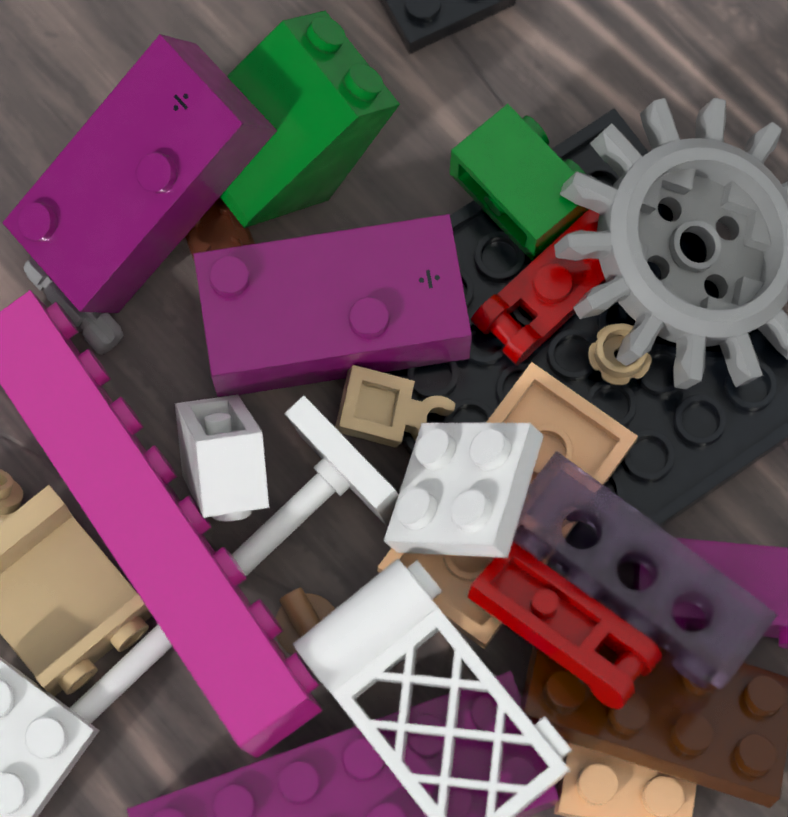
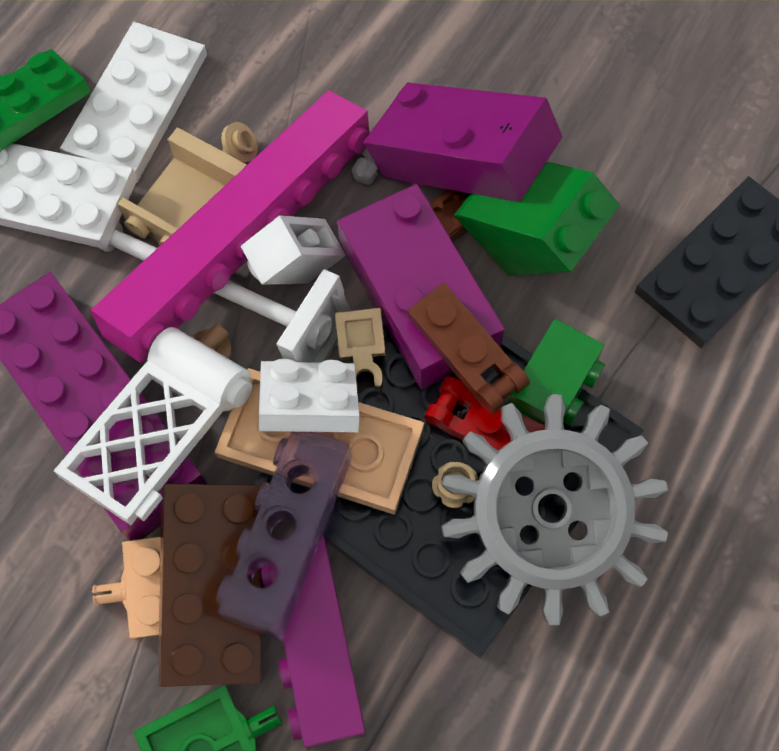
camera: 75 degrees right, 5 degrees down
(464, 266) = (466, 347): none -> copper plate
(565, 624) = (233, 490): red plate -> none

